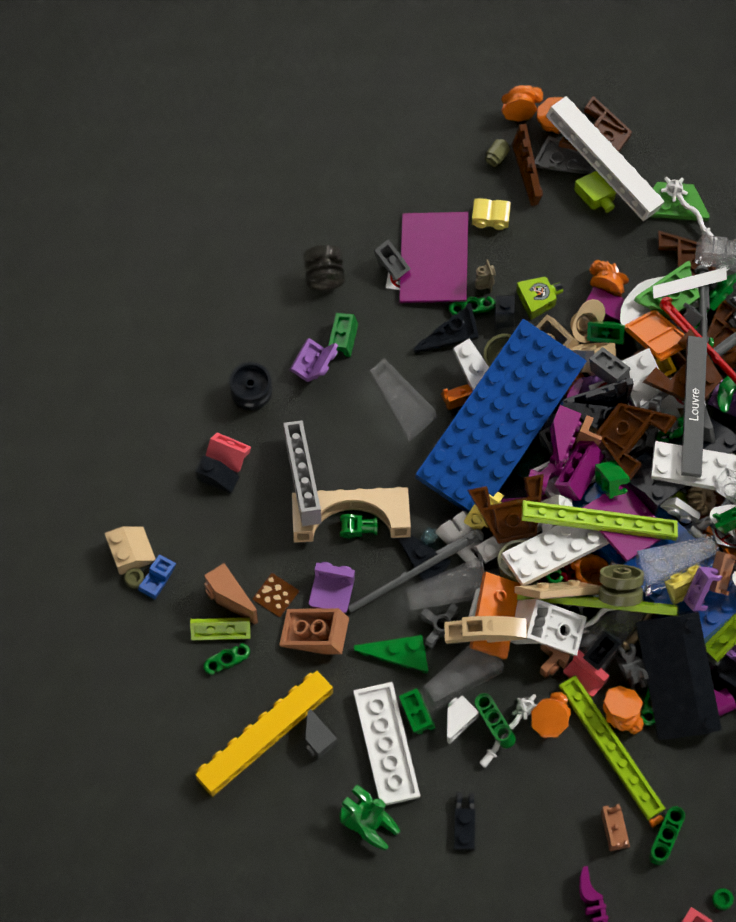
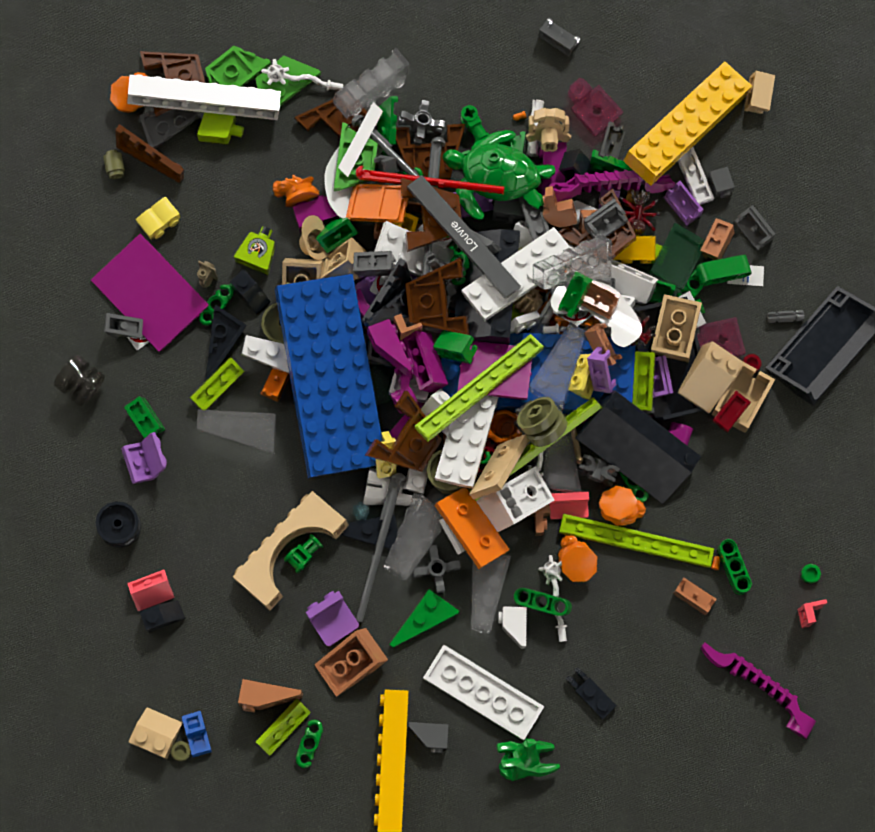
camera: 50 degrees left, 10 degrees up
(275, 594) = (294, 661): reddish brown sticker -> none
(302, 473) = (228, 555): light grey brick -> none
(416, 711) = (482, 648): green hinge -> none
(417, 357) = (217, 384): none -> lime plate
(486, 628) = (480, 546): tan slope -> none
(520, 102) = (93, 108): orange piece -> none
(602, 649) = (569, 479): black slope -> none
(650, 162) = (235, 67): none -> bright green wing

